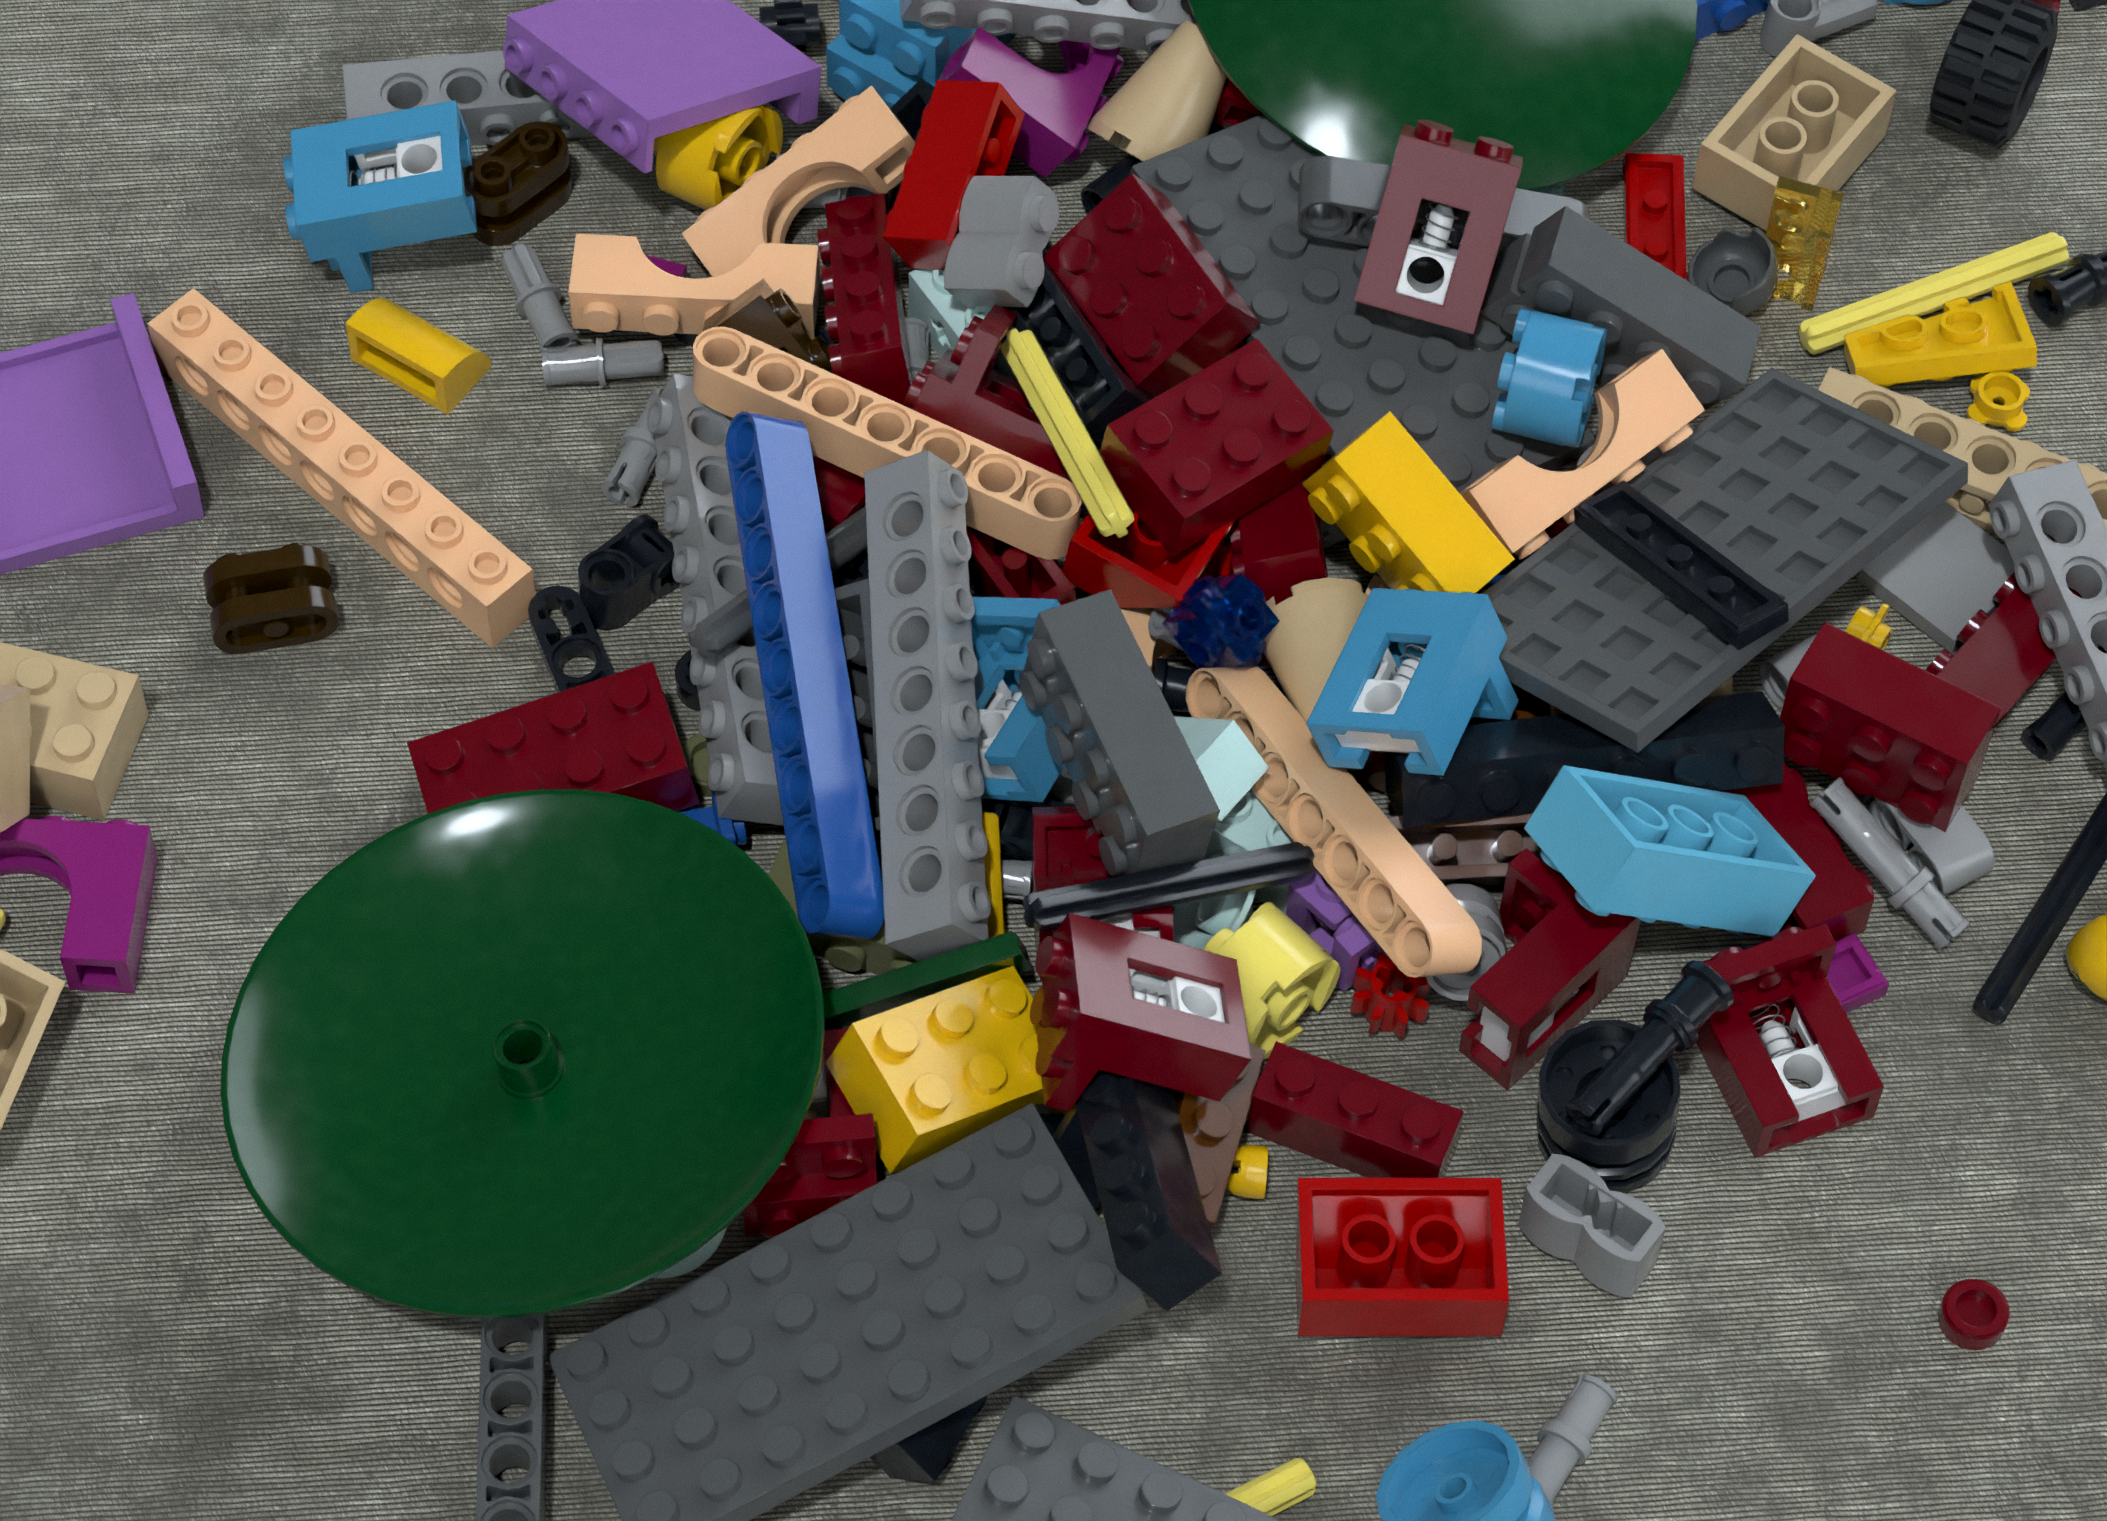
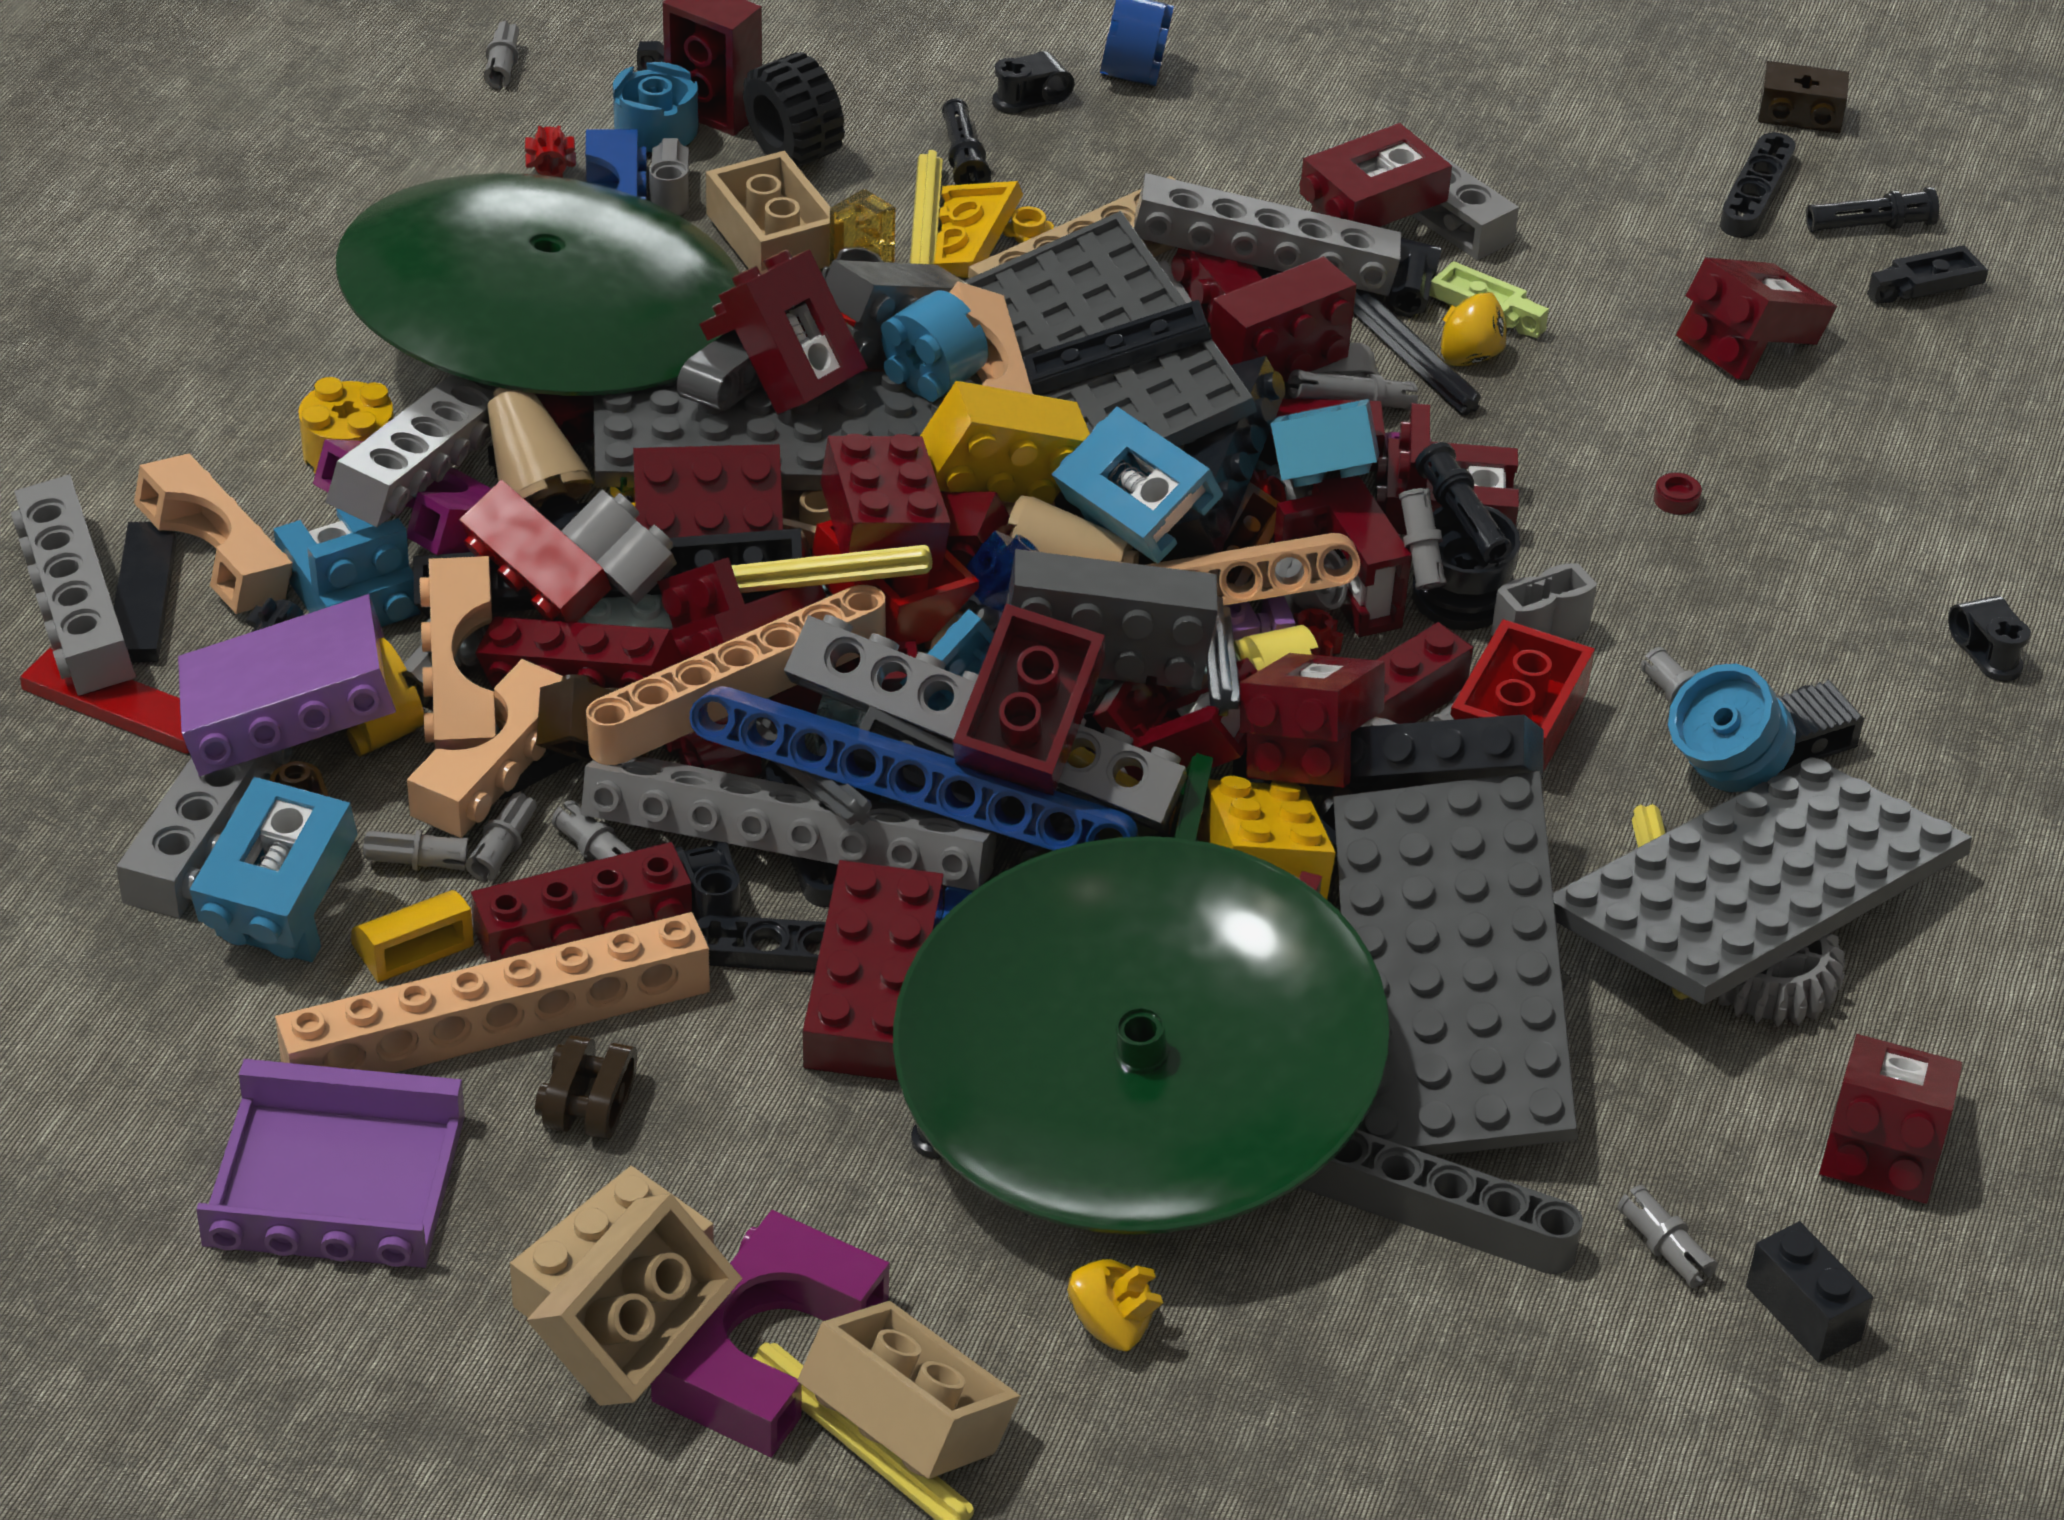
camera: 65 degrees left, 15 degrees down
(186, 1195) = (1113, 1301): none -> yellow piece
(521, 470) = (580, 902): none -> dark red brick
(907, 714) = (1029, 699): none -> dark red brick
(1548, 1026) = (1422, 538): none -> light grey pin

